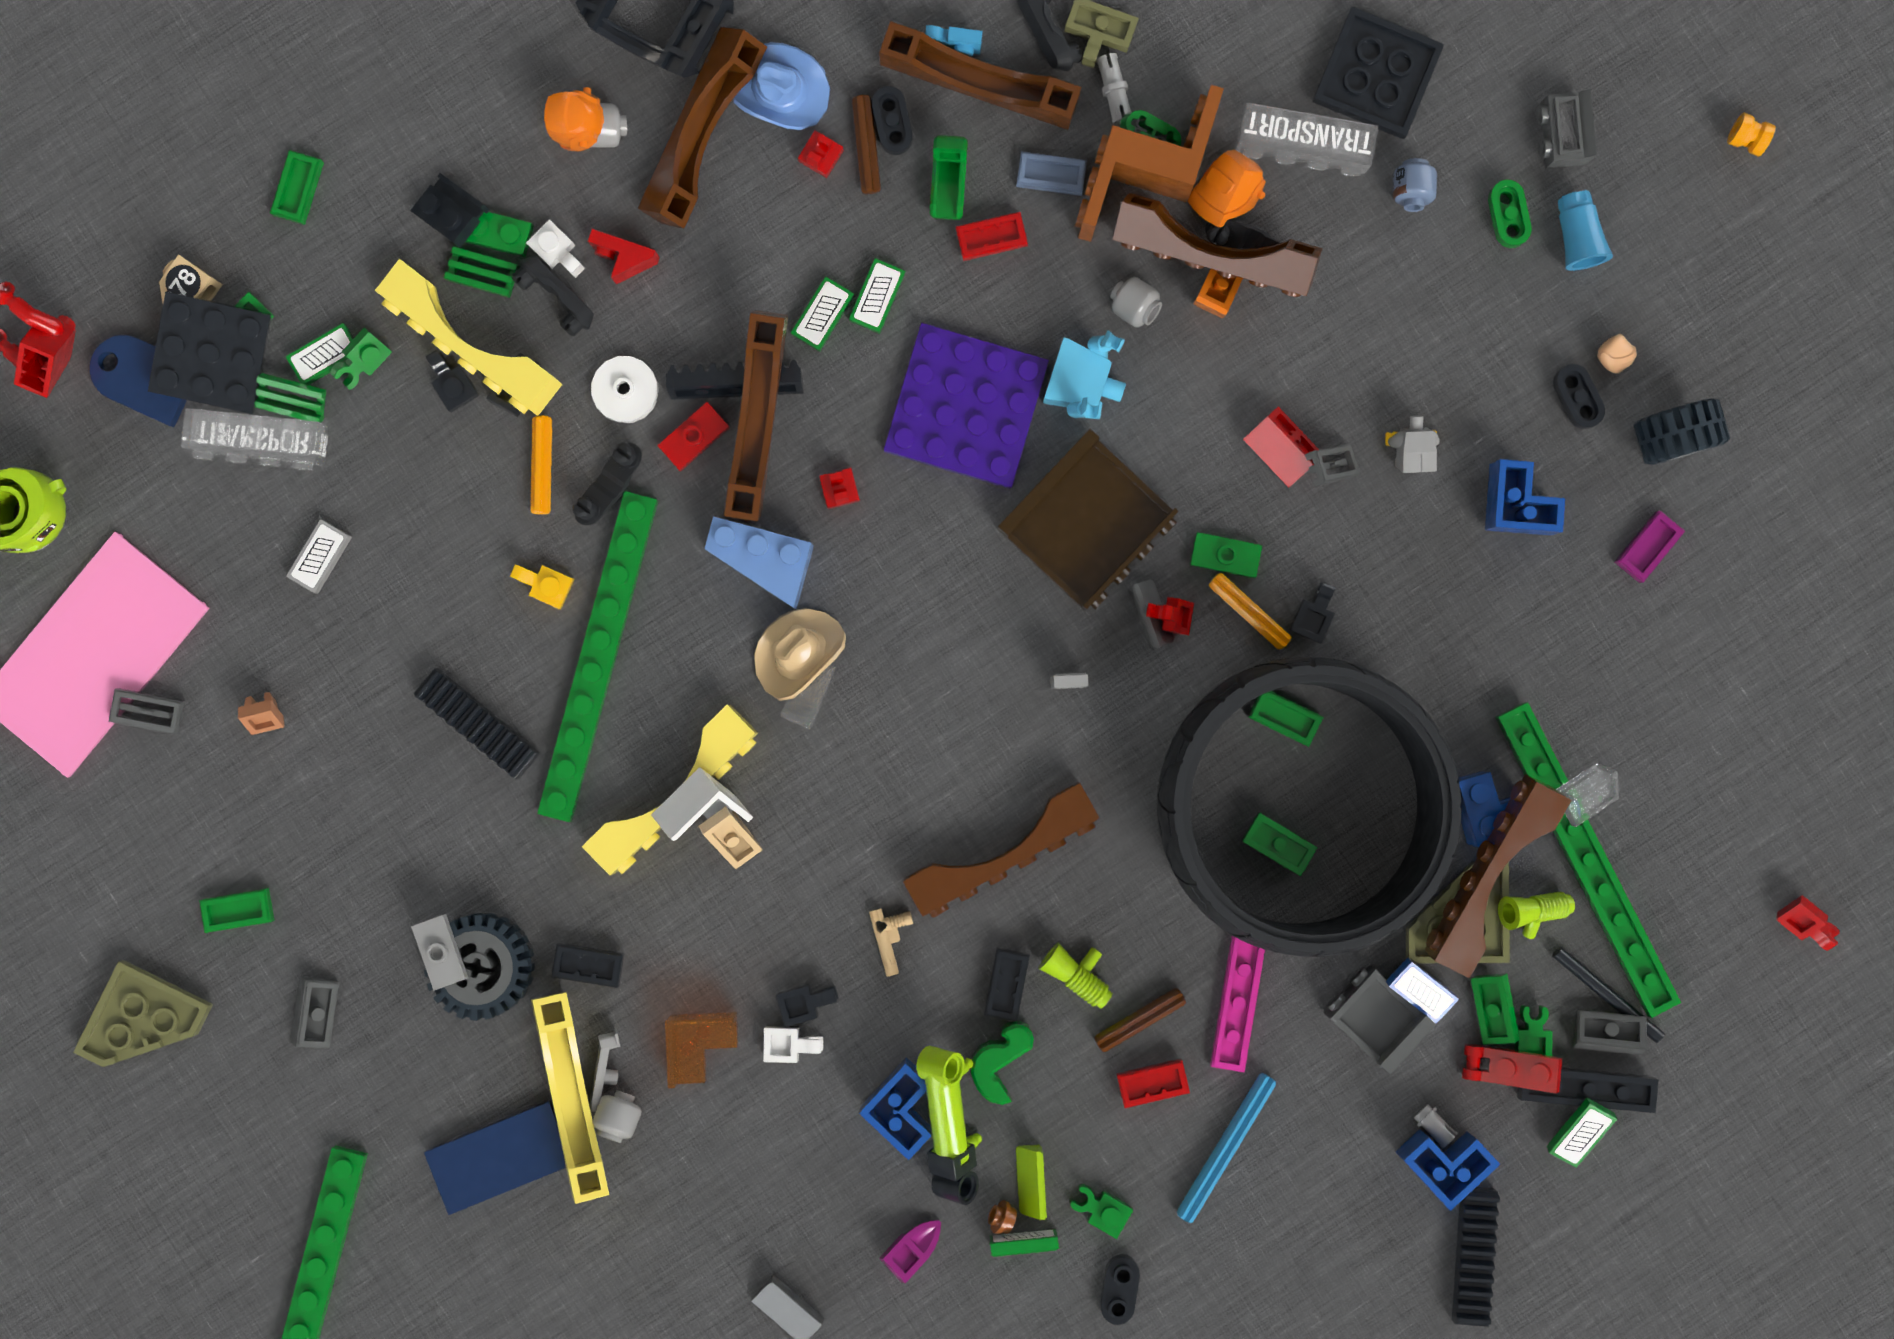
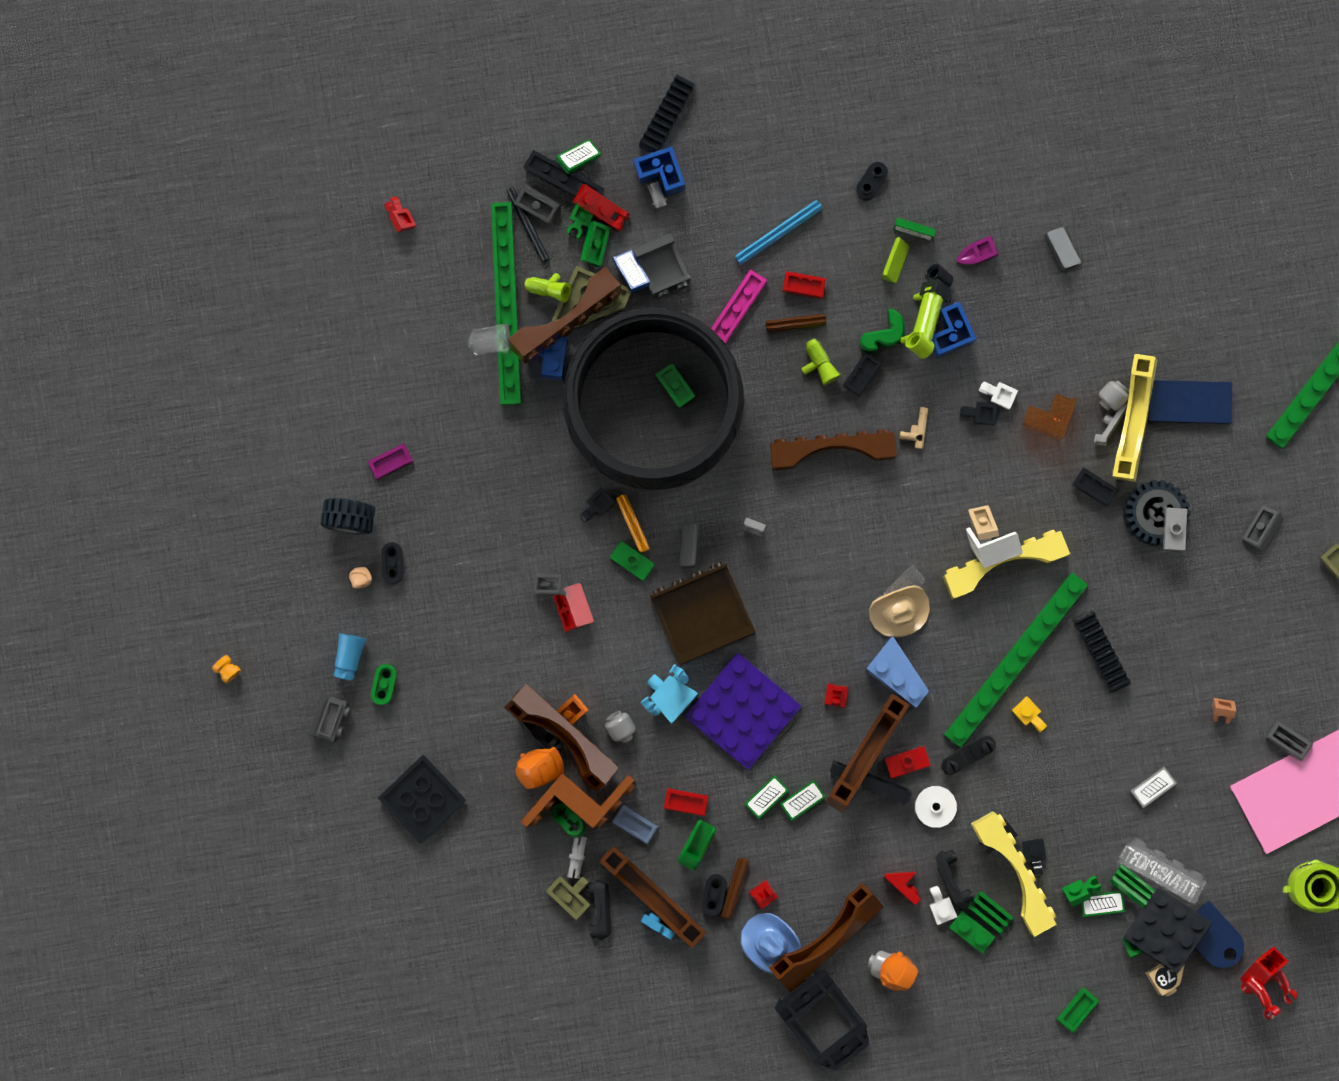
camera: 150 degrees left, 5 degrees down
(236, 910) = (1283, 605): green tile -> none
(449, 210) = (993, 954): black plate -> none
(541, 465) = (1002, 783): light orange axle -> none
(1002, 1217) = (920, 247): dark orange plate -> none
(1106, 1213) = (861, 226): green plate -> none
(1175, 615) = (677, 538): red plate -> none
(1285, 717) = (638, 453): green tile -> none
(1306, 139) = (480, 778): clear brick -> none
(1414, 184) = (431, 724): sand blue head -> none
(1414, 447) = (499, 574): light grey piece -> none
(1512, 505) = (459, 515): blue brick -> none

